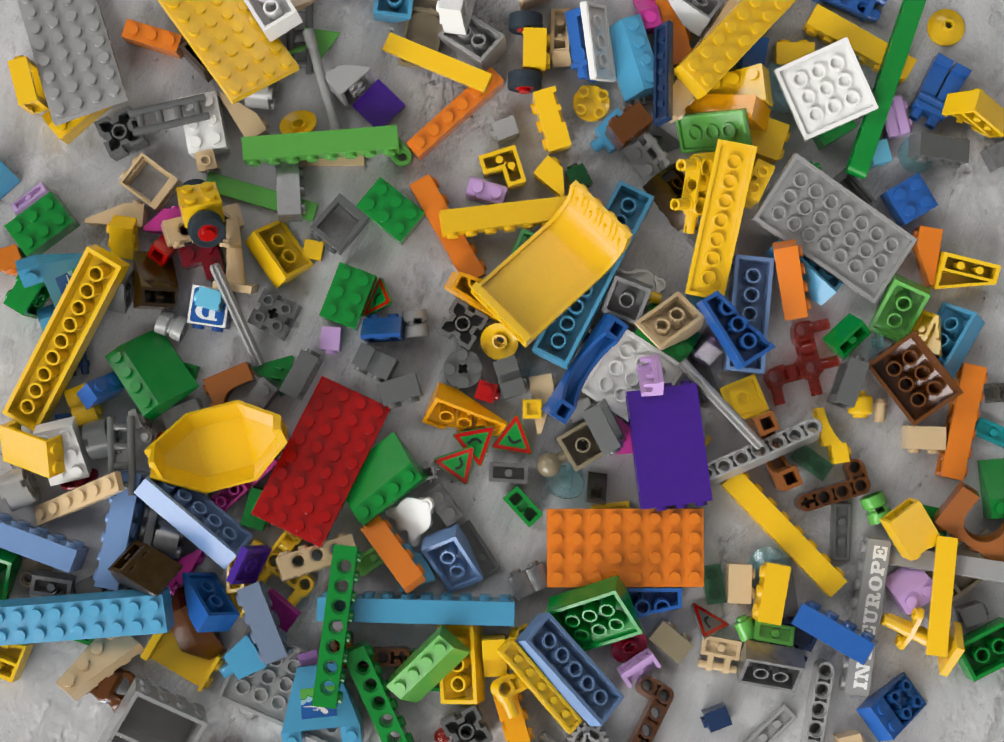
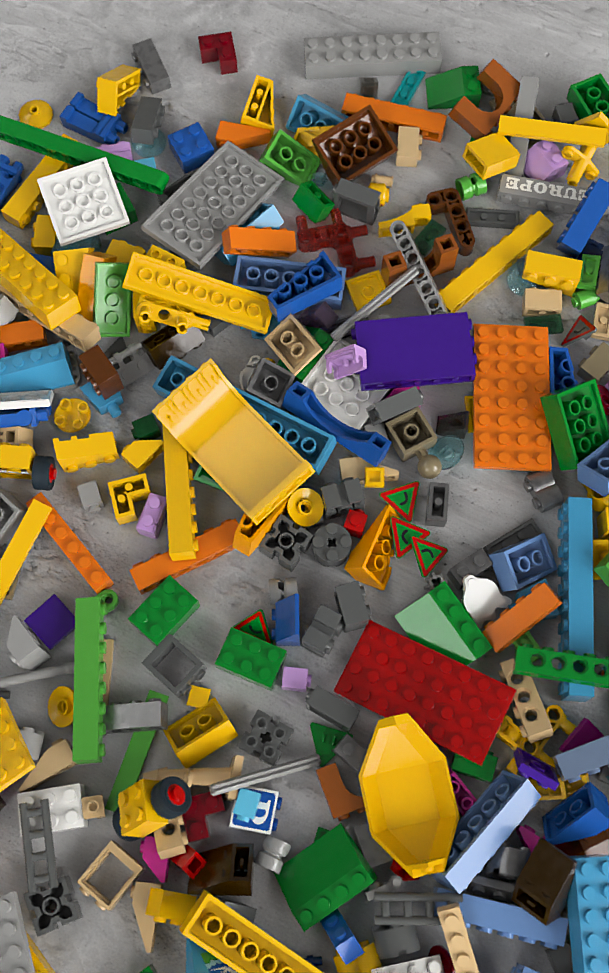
camera: 85 degrees left, 15 degrees down
(522, 506) = (470, 492): green brick -> none
(663, 74) = (52, 337): dark blue tile -> none

